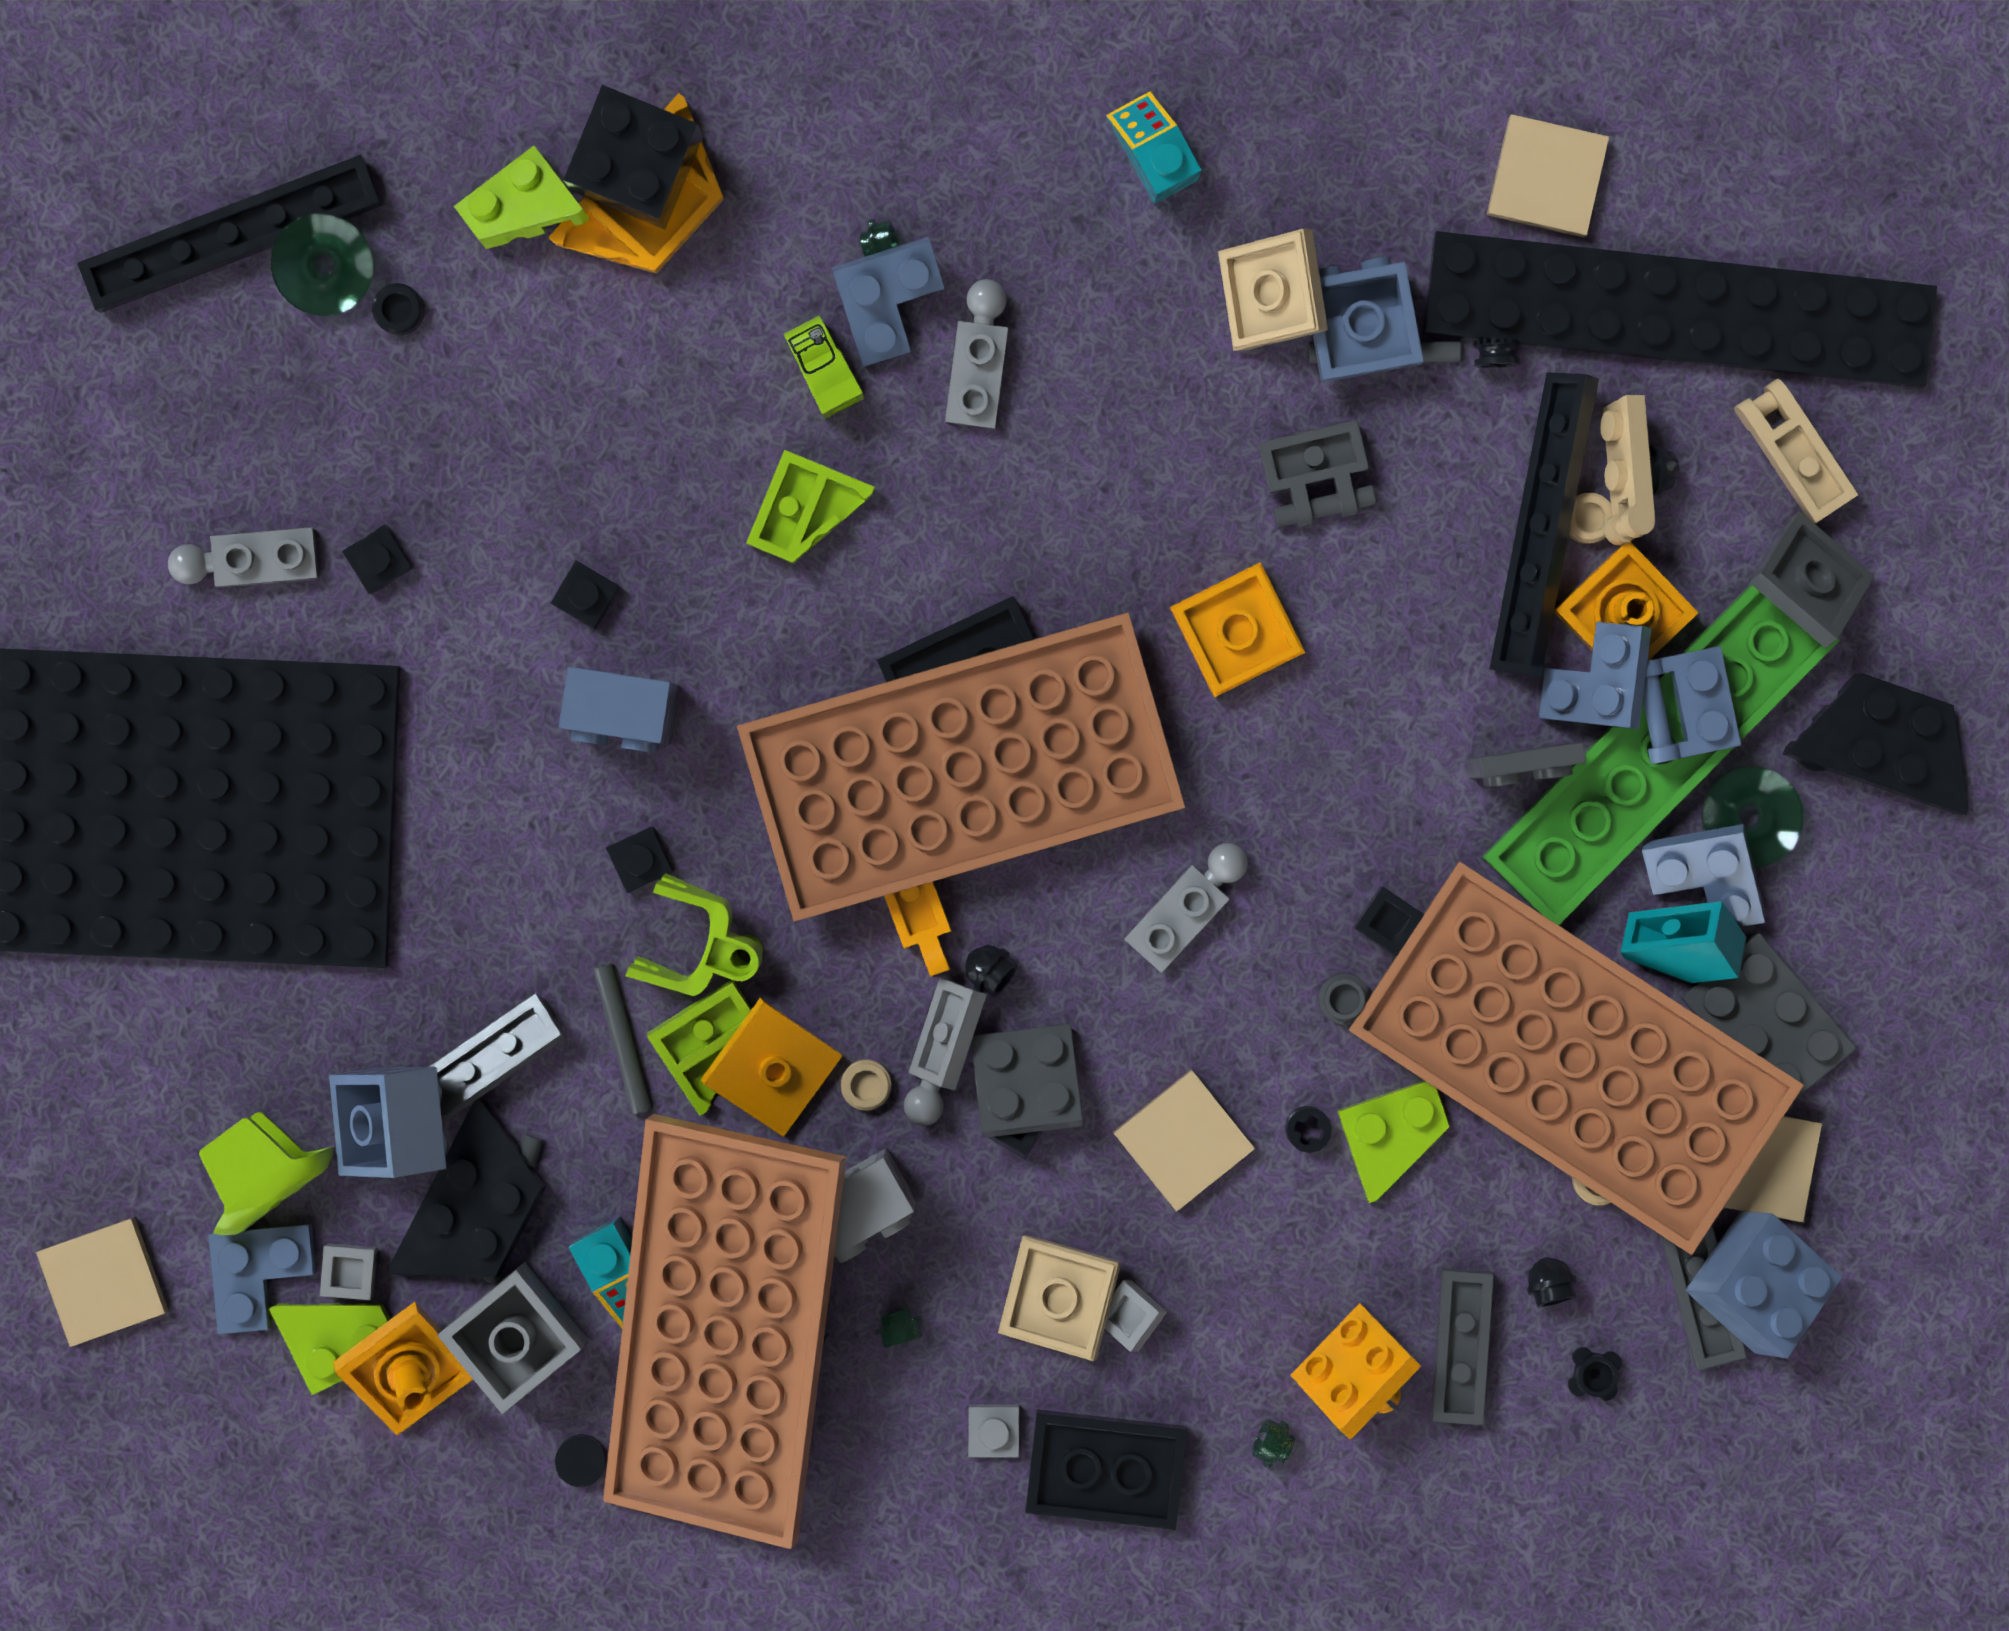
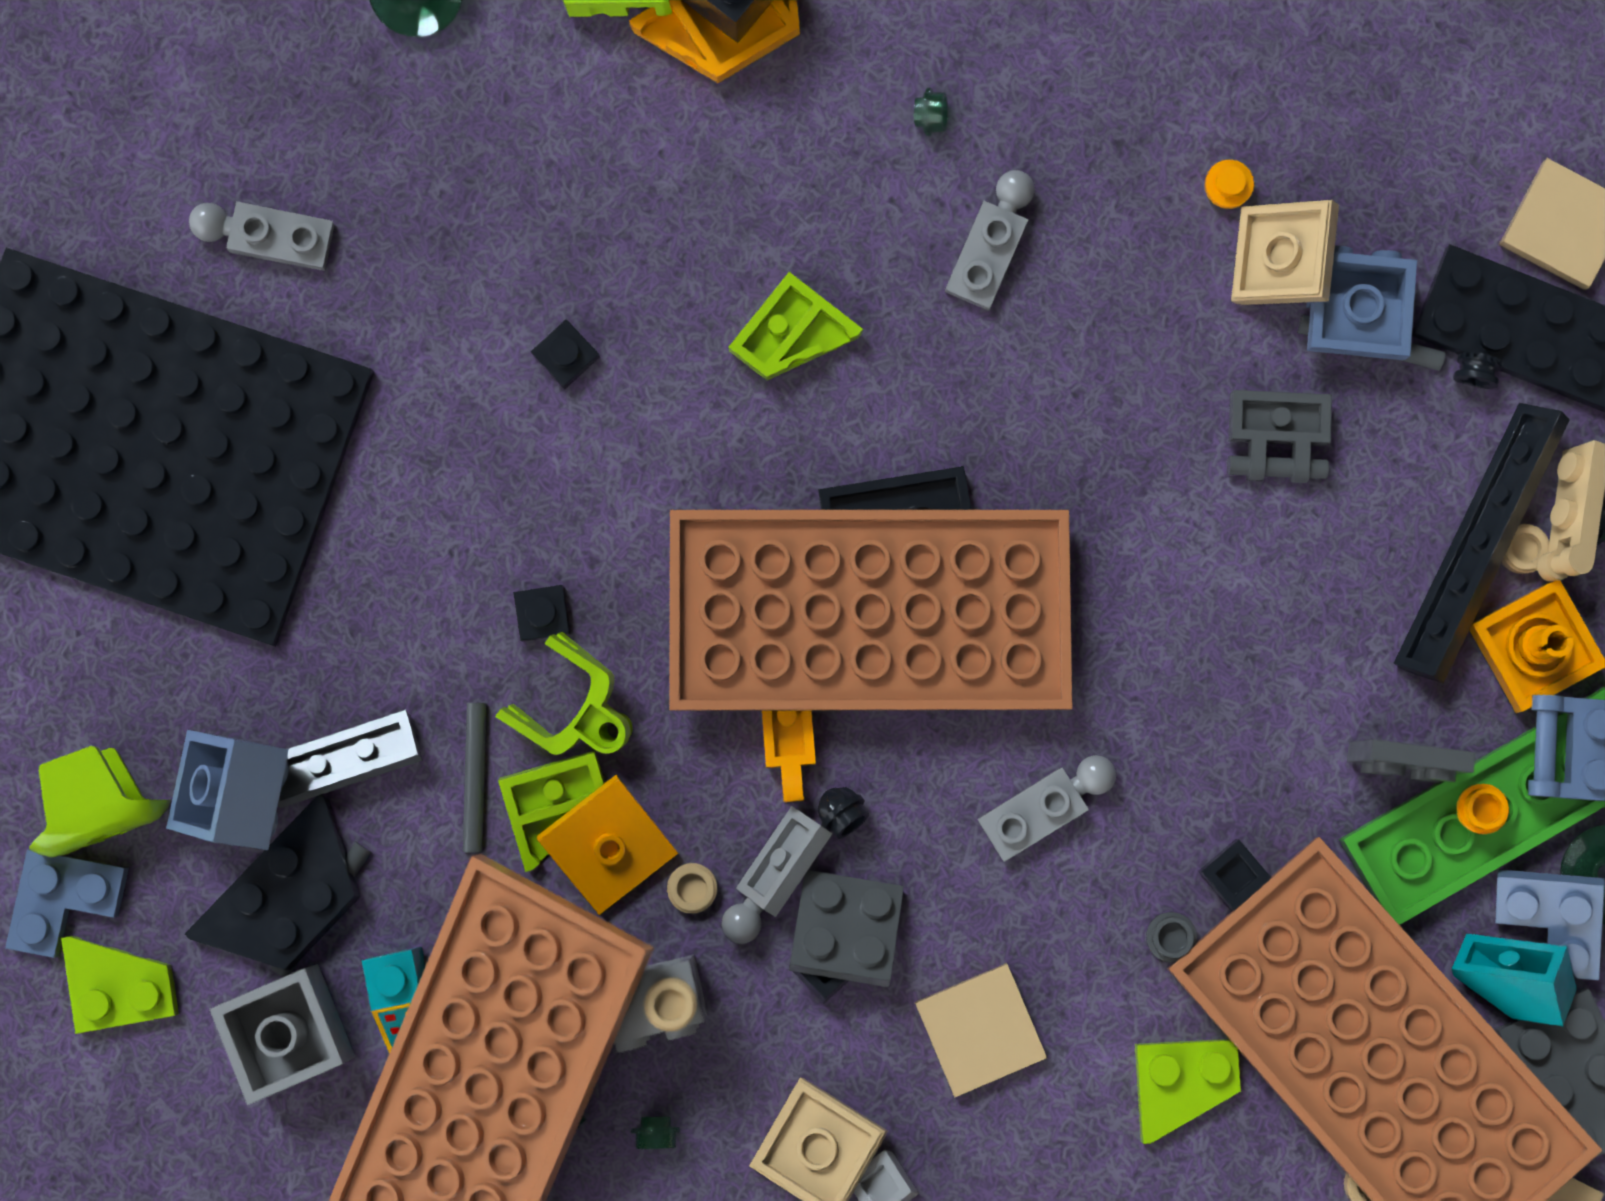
camera: 15 degrees right, 5 degrees down
(348, 1271) = (148, 924): light grey plate -> none
(377, 559) = (383, 268): black plate -> none
(398, 309) = (472, 49): black tile -> none
(402, 1369) = (167, 1033): light orange plate -> none
(580, 1460) = (311, 1173): black tile -> none
(618, 706) = (564, 461): sand blue brick -> none
(823, 367) = (847, 209): lime leg -> none
(874, 288) = (916, 146): sand blue plate -> none
(877, 1204) = (670, 1004): none -> tan tile
(1154, 147) = (1210, 97): teal slope -> none
(1199, 231) = (1229, 184): none -> light orange plate
(1237, 629) = (1164, 558): light orange plate -> none
(1322, 1122) = (1104, 1070): black bush -> none
(1609, 789) = (1482, 808): none -> light orange plate
(1612, 688) = (1509, 713): sand blue plate -> none

